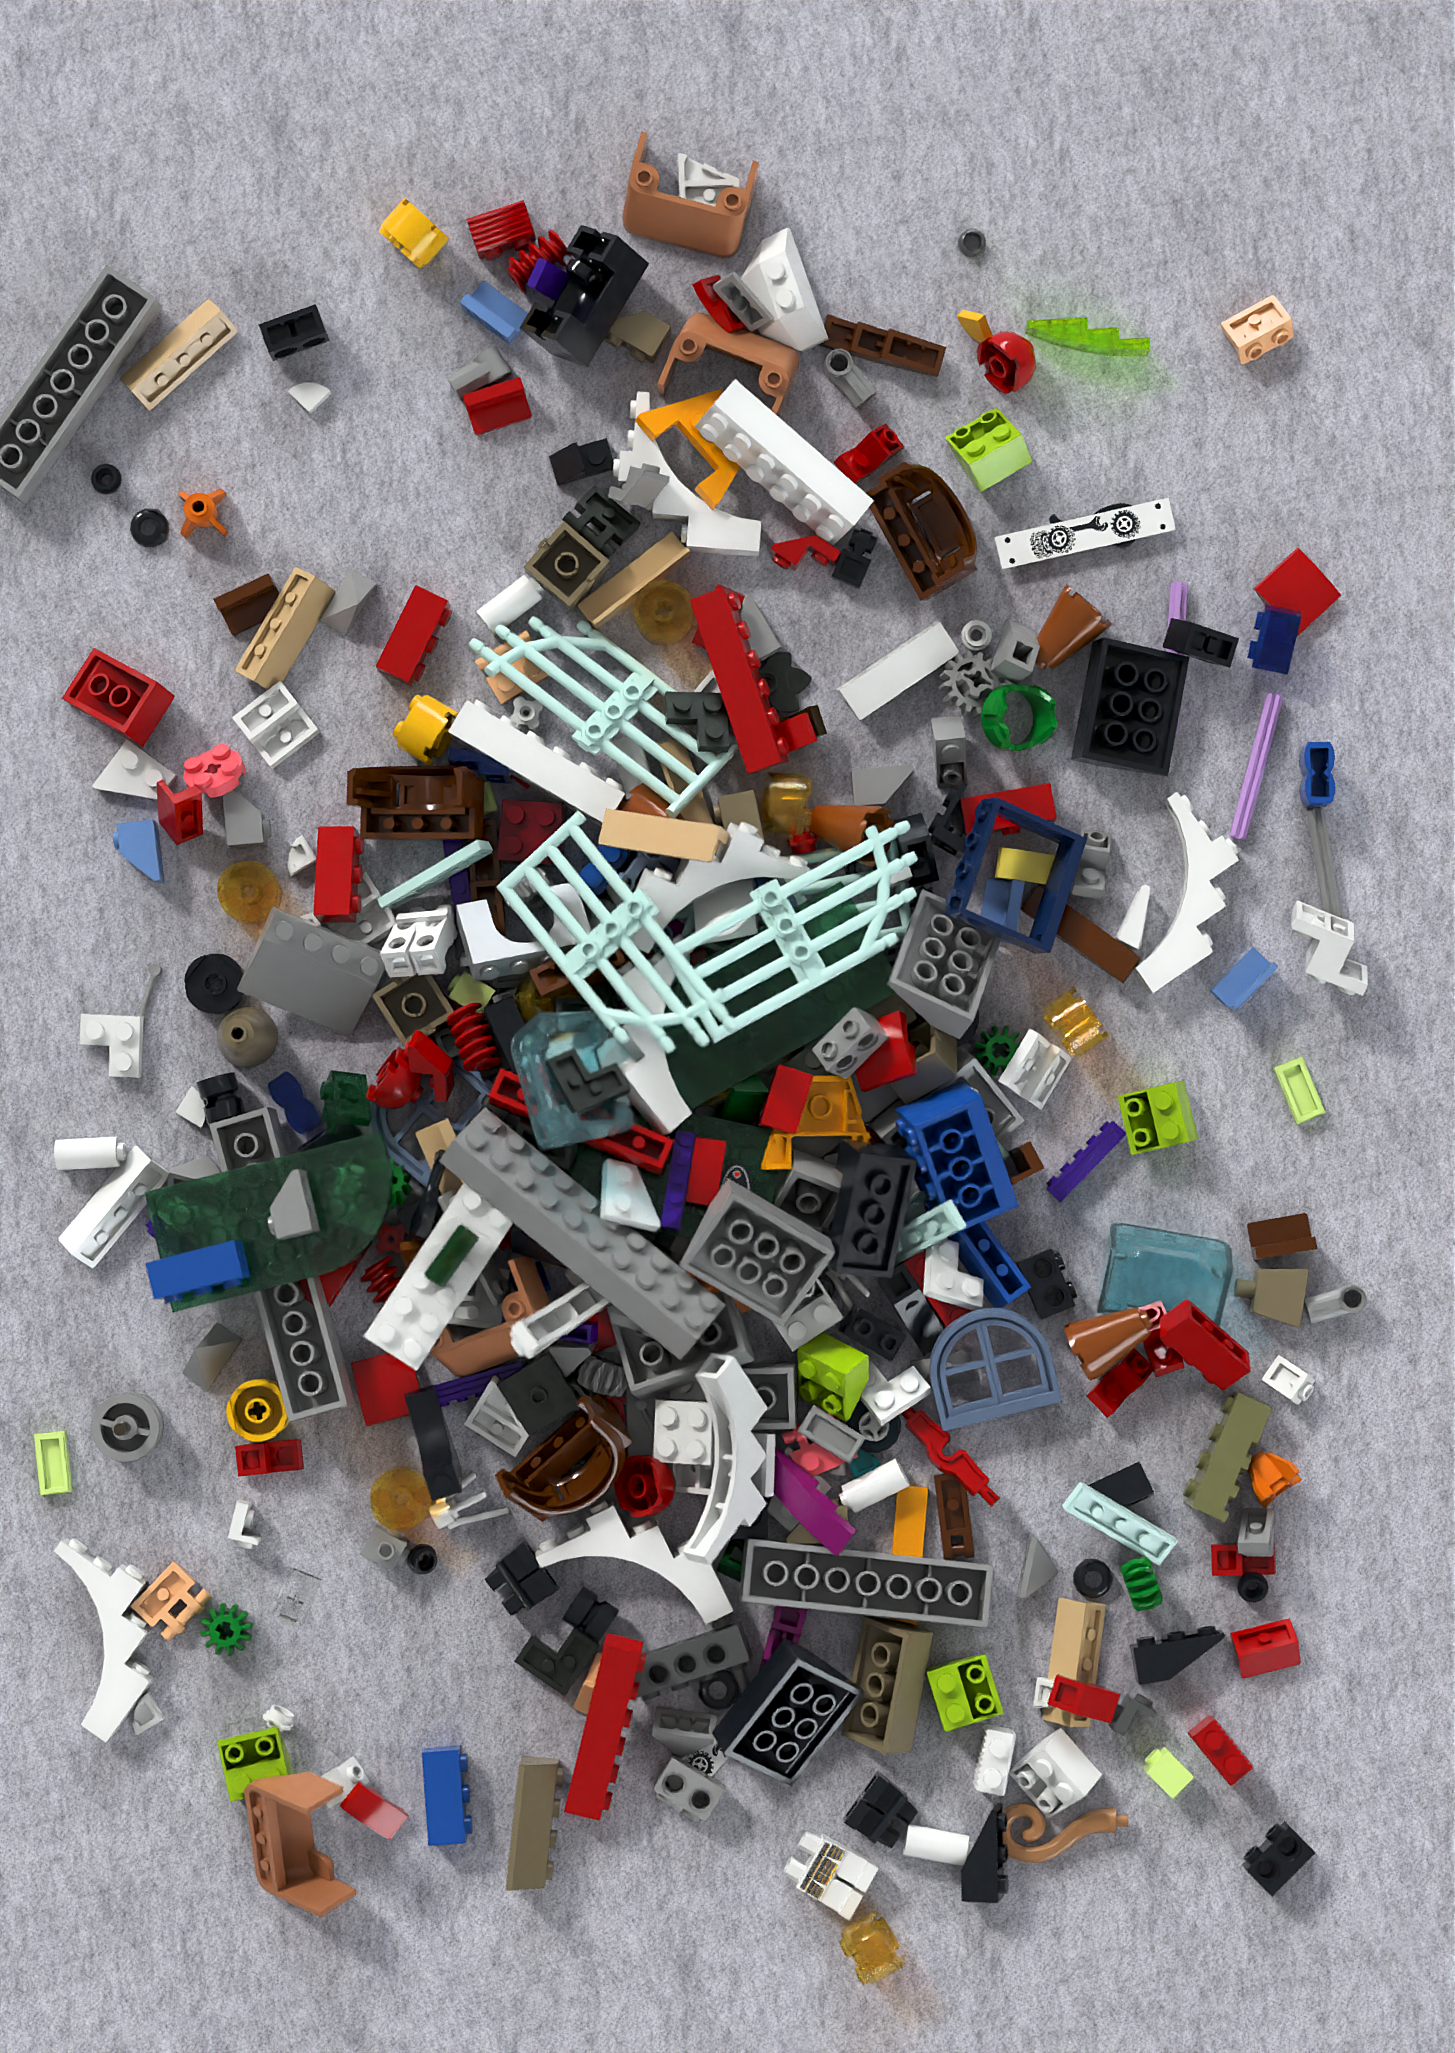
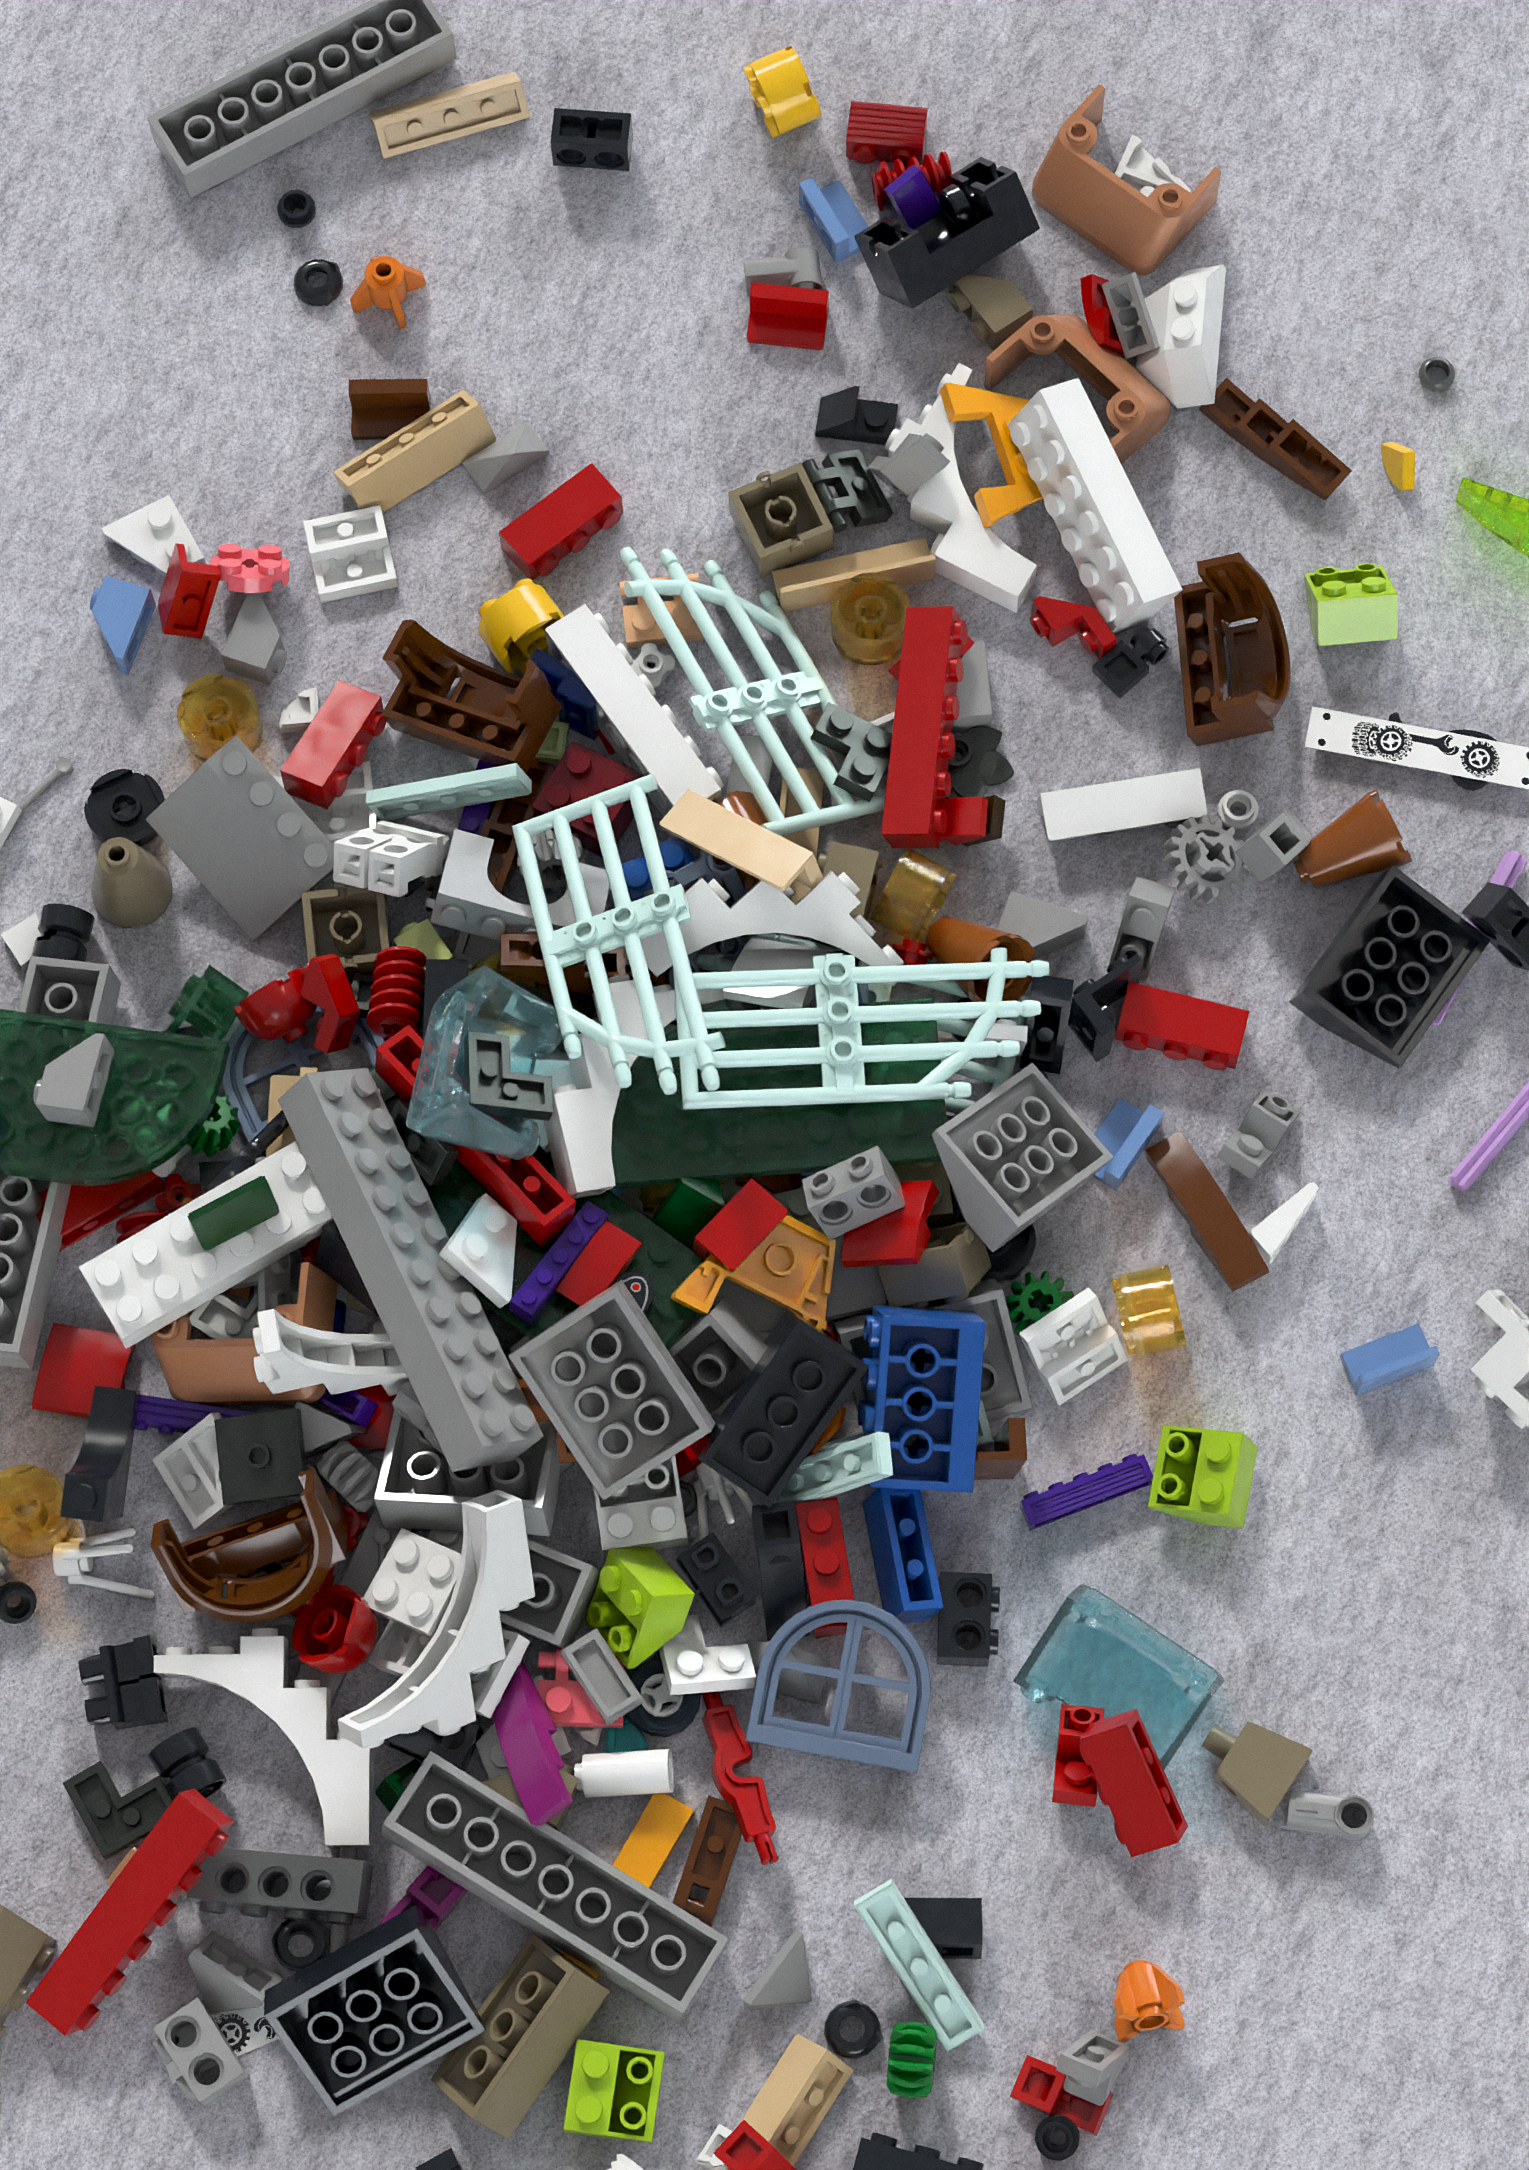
camera: 25 degrees right, 15 degrees down
(118, 697) = (185, 445): red slope -> none
(299, 1110) = (147, 984): clear blue brick -> none
(309, 395) = (576, 218): white tile -> none
(510, 603) = (695, 535): white brick -> none
(849, 381) = (1218, 458): light grey piece -> none
(869, 454) = (1212, 542): red slope -> none
(944, 1280) = (836, 1549): white plate -> none
(1008, 361) = (1419, 513): red cylinder -> none
(1023, 865) = (1181, 1104): light yellow slope -> none
(1043, 717) = (1211, 918): green piece -> none
(1056, 888) = (1241, 1095): dark blue window -> none
(1107, 1338) = (1010, 1717): dark orange cone -> none
(1120, 1382) = (1003, 1789): red slope -> none
(1200, 900) = (1331, 1280): white arch -> none
(1227, 1455) = (1100, 1945): olive wedge -> none
(1280, 1236) = (1295, 1700): reddish brown panel -> none
(1289, 1380) = (1225, 1888): white bracket -> none
(1299, 1090) = (1400, 1528): yellowish green tile -> none

